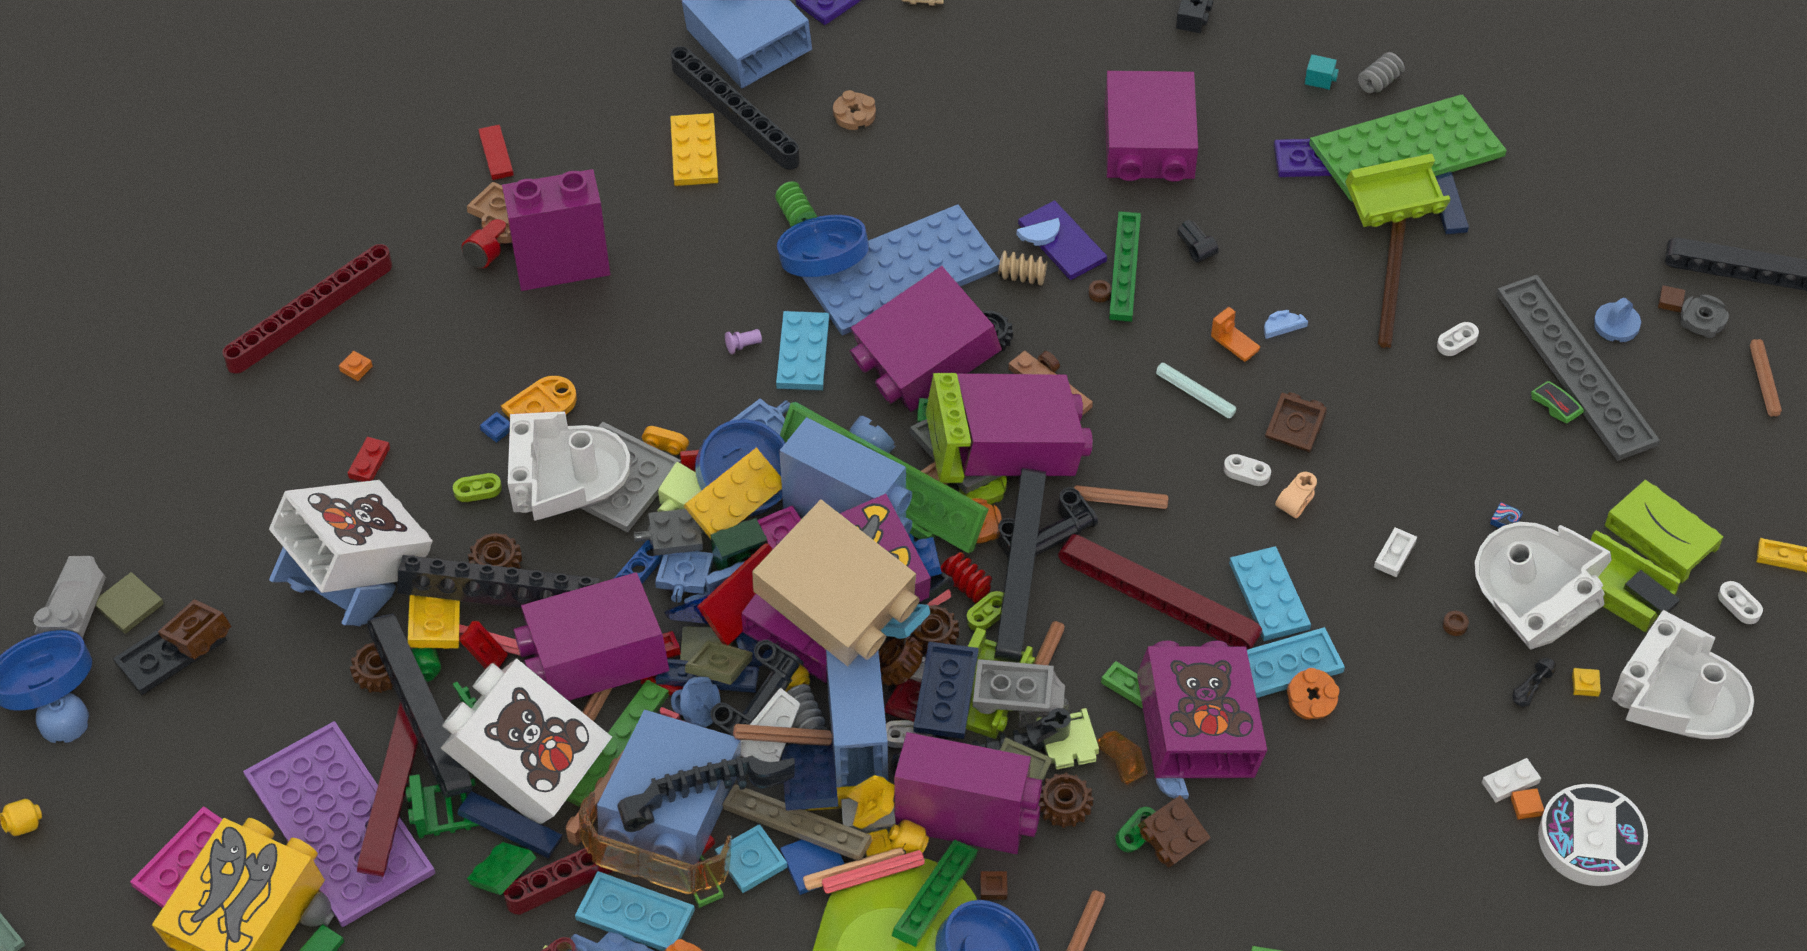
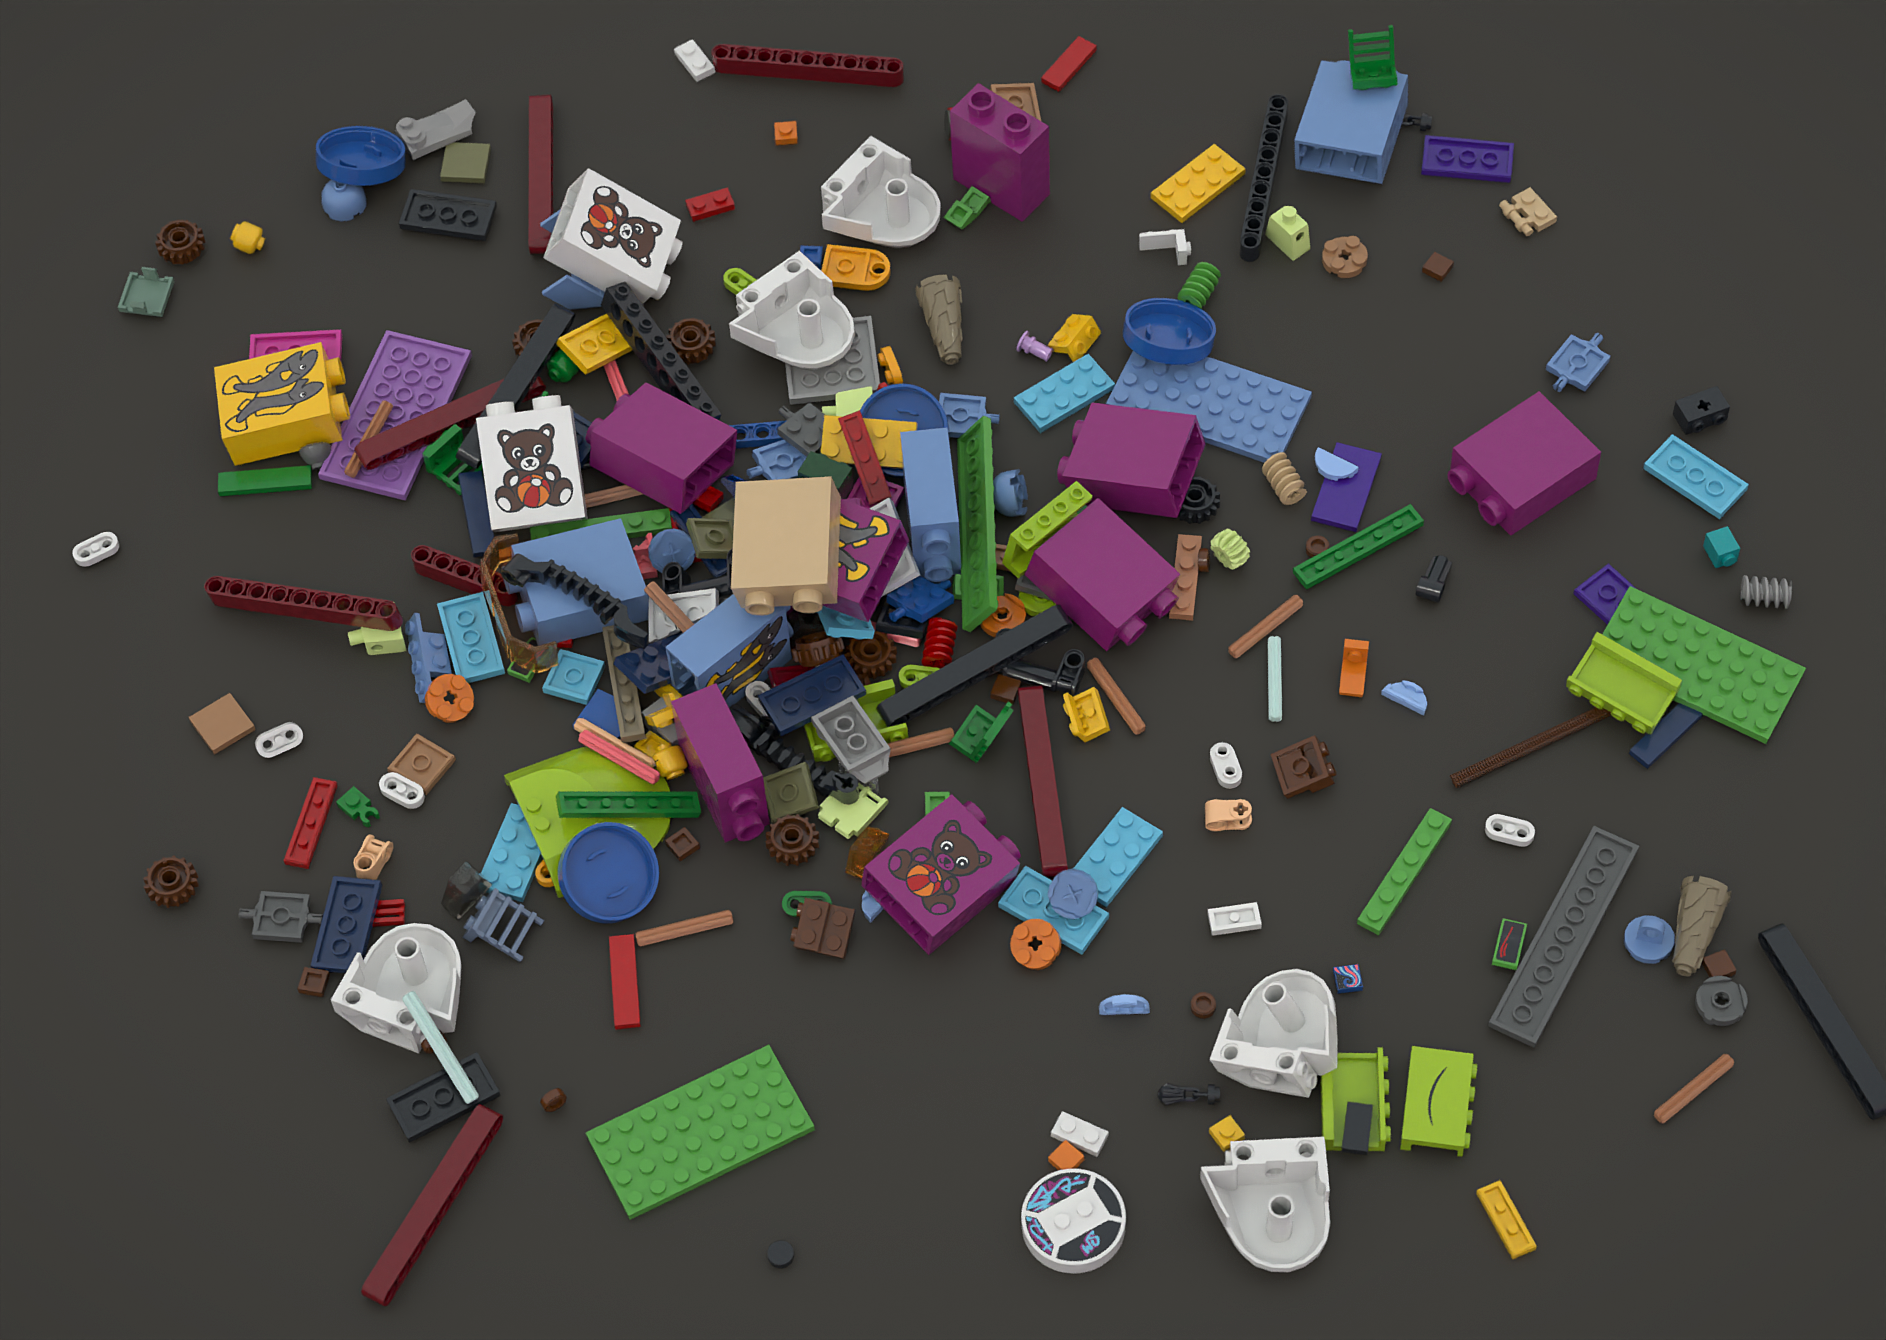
camera: 55 degrees right, 5 degrees up
(195, 629) = (467, 214): reddish brown plate -> none
(206, 555) = (540, 170): none -> dark red beam
(211, 379) = (694, 60): none -> white plate
(348, 856) = (373, 429): none -> nougat axle
(482, 645) = (602, 389): red plate -> none
(501, 343) = (879, 199): none -> white animal
(501, 868) = (435, 533): green plate -> none
(562, 297) = (966, 210): none -> bright green slope
(653, 373) = (942, 311): none -> dark tan cone
(737, 191) = (1167, 239): none -> white bracket
(750, 505) = (865, 457): none -> red tile
(758, 308) = (1075, 336): none -> yellow bracket
(803, 122) = (1289, 232): none -> yellowish green torso
(918, 66) = (1437, 266): none -> reddish brown tile
(1048, 564) = (1005, 689): none -> reddish brown tile
(1058, 338) = (1230, 549): none -> yellowish green gear
(1085, 45) = (1578, 362): none -> medium blue plate
(1085, 601) = (979, 731): none -> green plate
(1124, 523) = (1086, 714): none -> yellow bracket
(1143, 366) = (1265, 626): none -> nougat axle
(1245, 47) = (1695, 476): none -> medium azure plate
(1297, 633) = (1073, 893): none -> medium blue tile
(1415, 675) = (1124, 1005): none -> light blue tile
(1439, 424) = (1404, 871): none -> bright green plate
(1630, 280) = (1697, 919): none -> dark tan cone
(1741, 602) = (1412, 1203): white plate -> none

